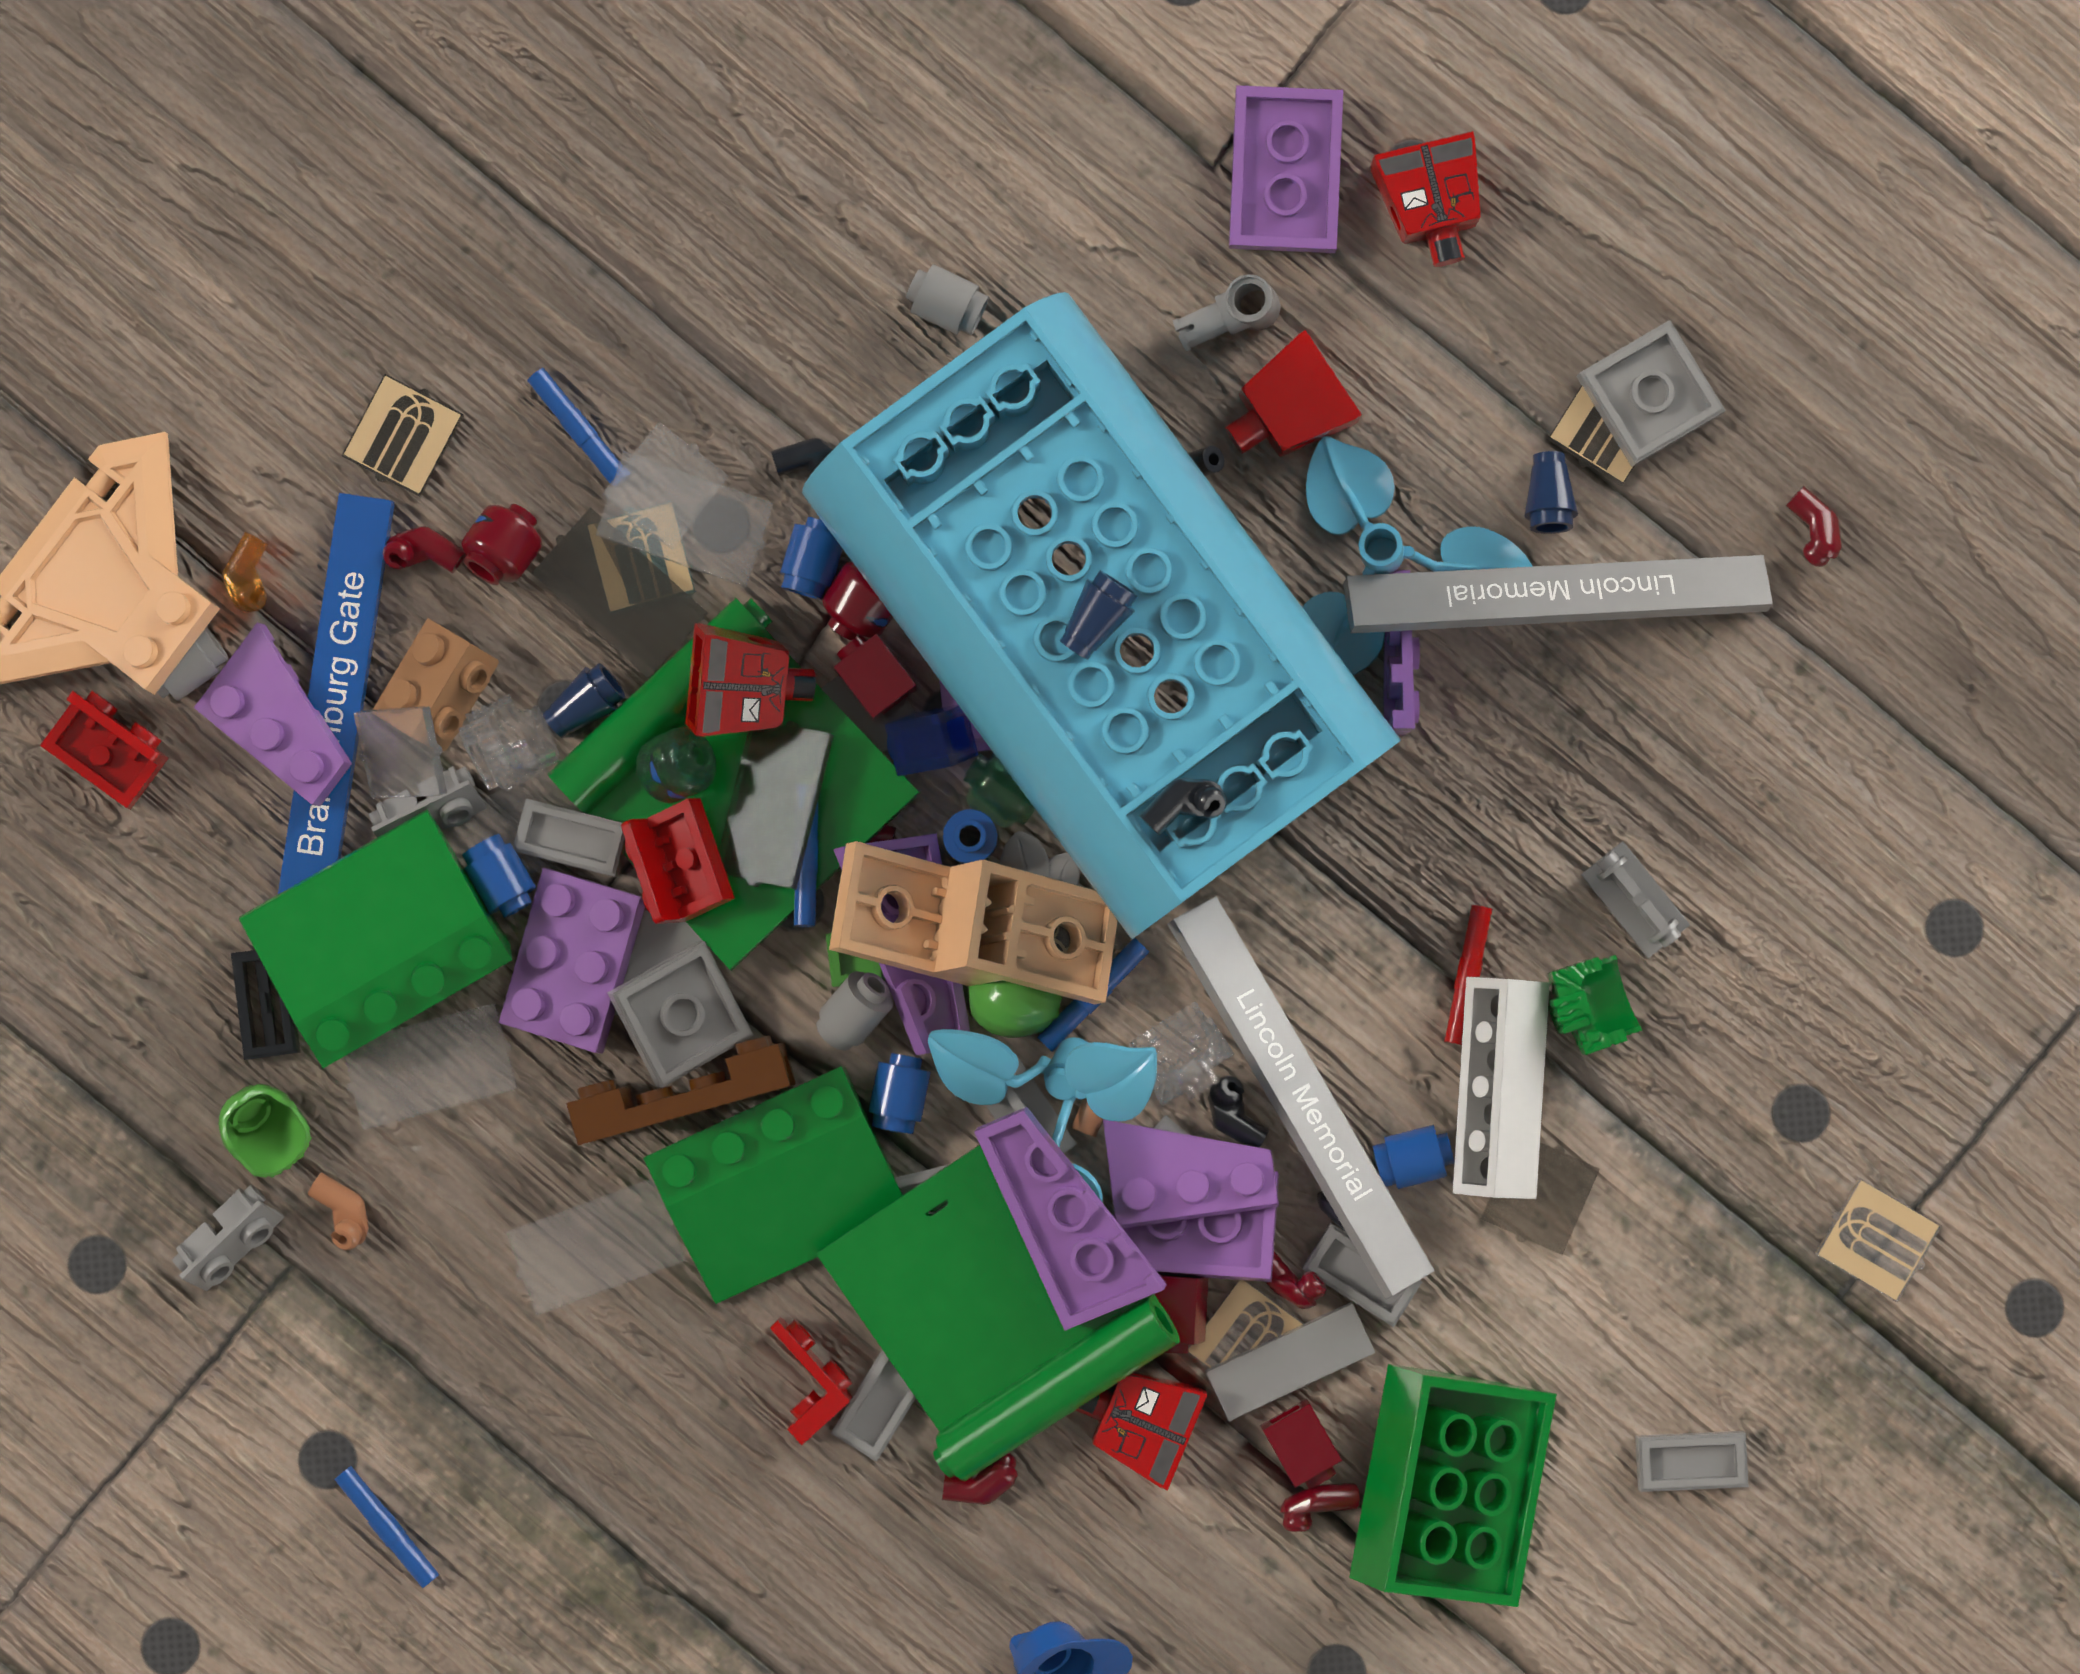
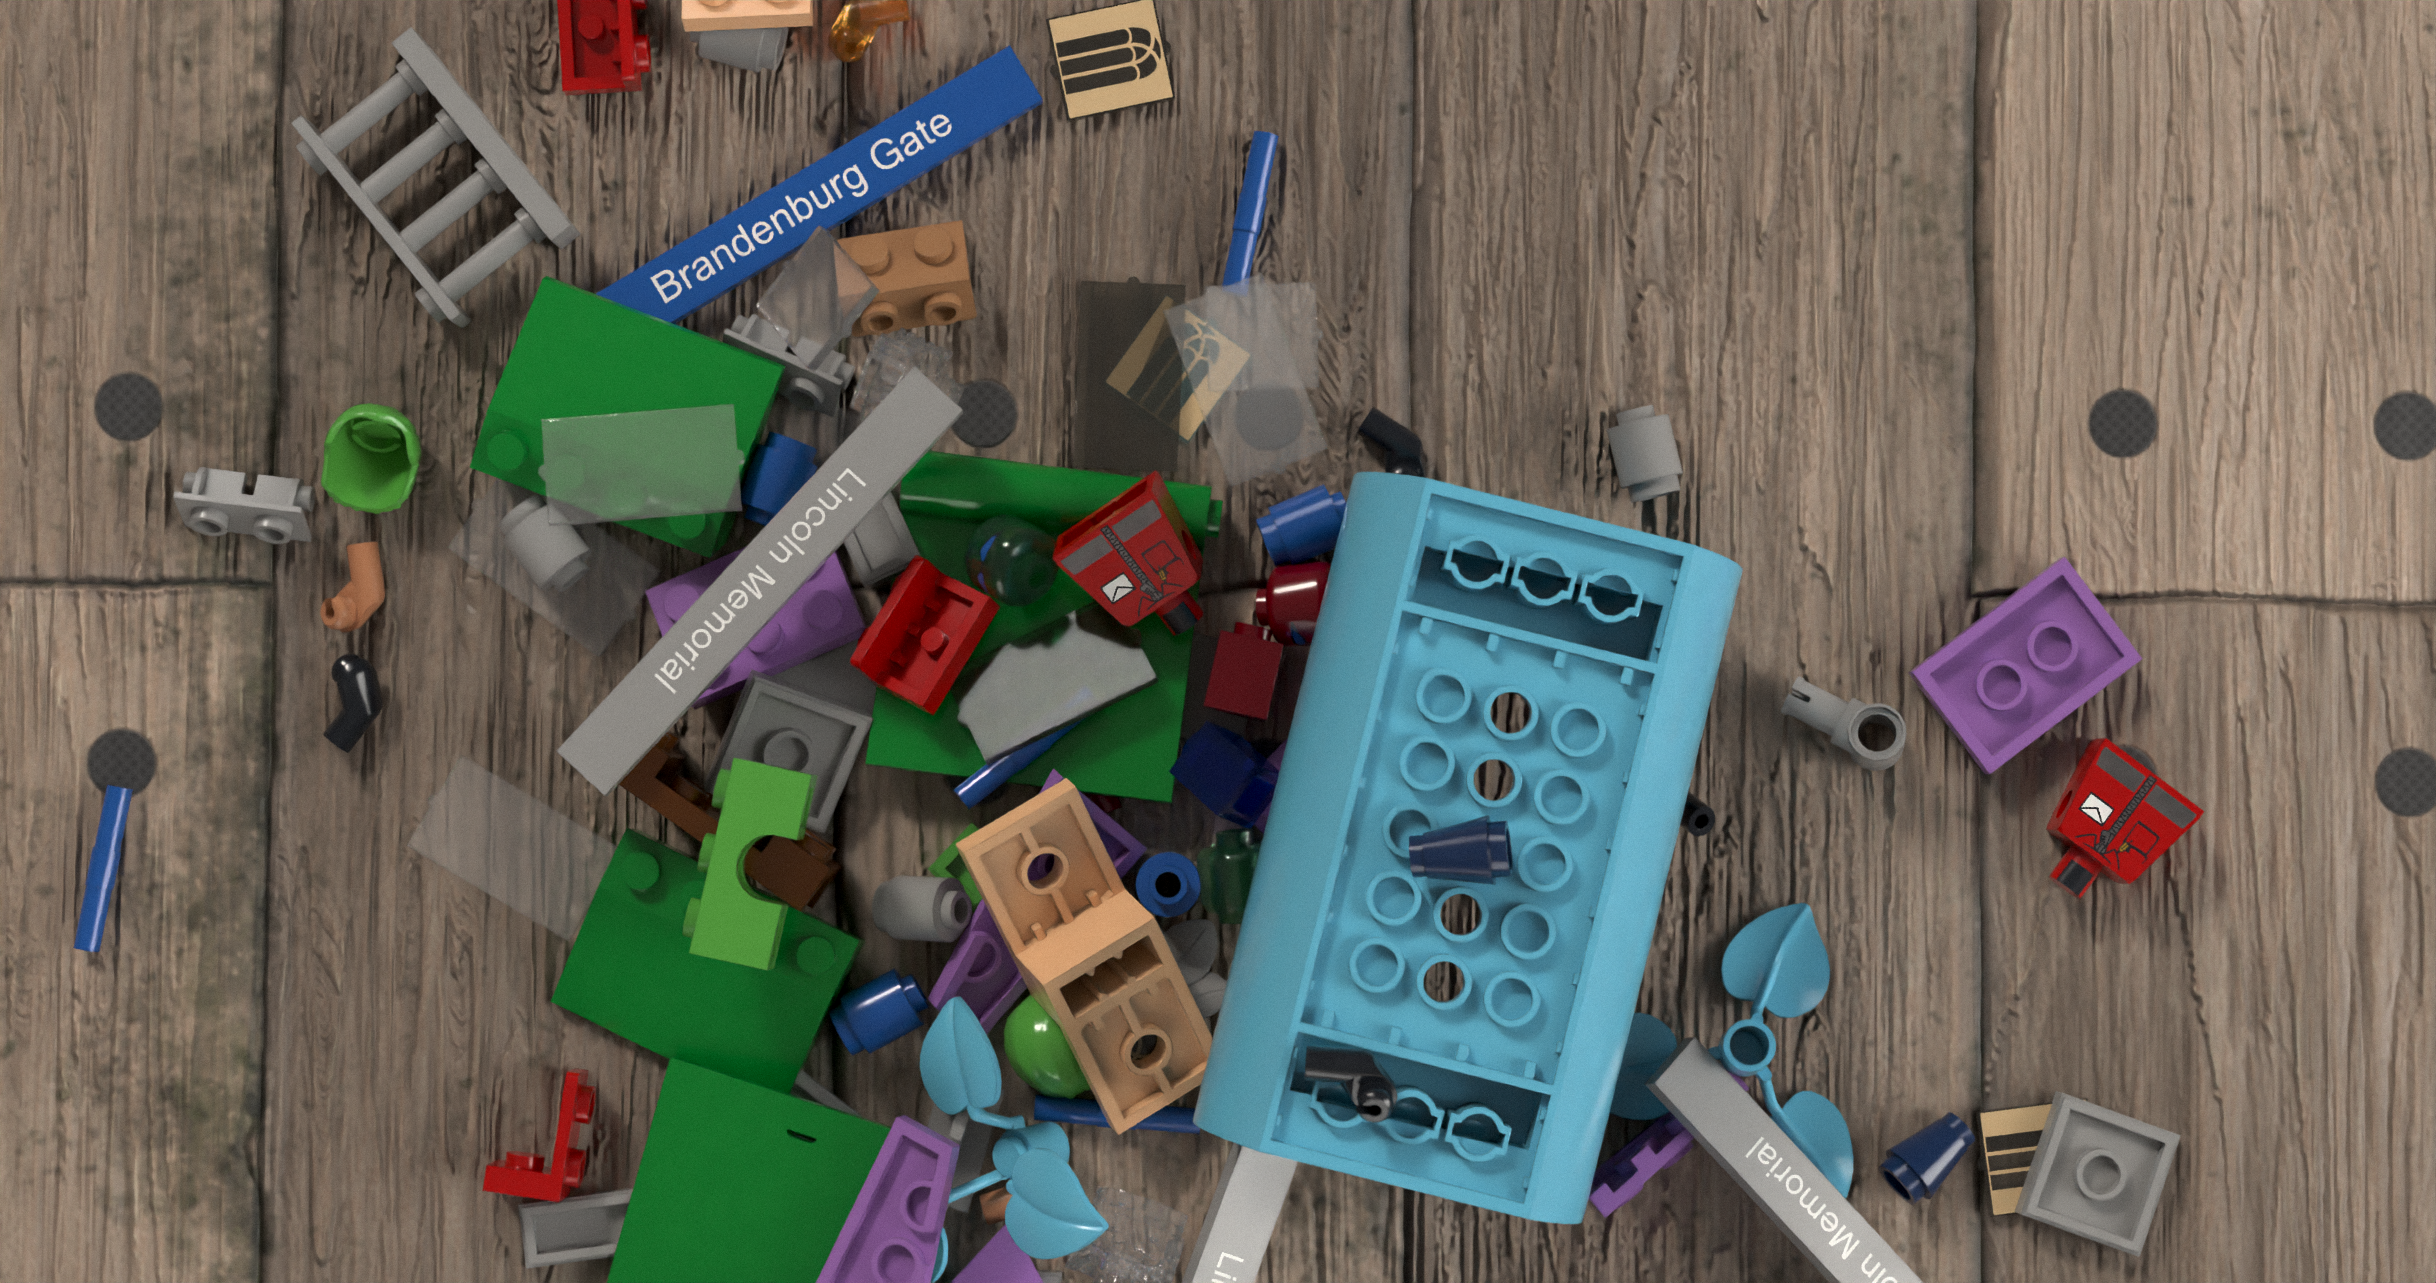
camera: 50 degrees right, 0 degrees up
(90, 893) = (456, 122): none -> light grey fence
(245, 1013) = (462, 356): black tile -> none
(270, 717) = (752, 157): medium lavender wing -> none
(414, 953) = (641, 465): none -> clear piece
(414, 1061) = (545, 552): none -> light grey brick
(416, 1267) = (359, 697): none -> black arm
(419, 546) = (1023, 159): dark red arm -> none
(501, 543) = (1084, 232): dark red head -> none
(554, 936) = (760, 582): none -> light grey tile
(585, 700) = (1005, 426): dark blue cone -> none
(697, 1054) = (730, 917): none -> bright green arch
(1293, 401) = (1815, 849): red torso -> none

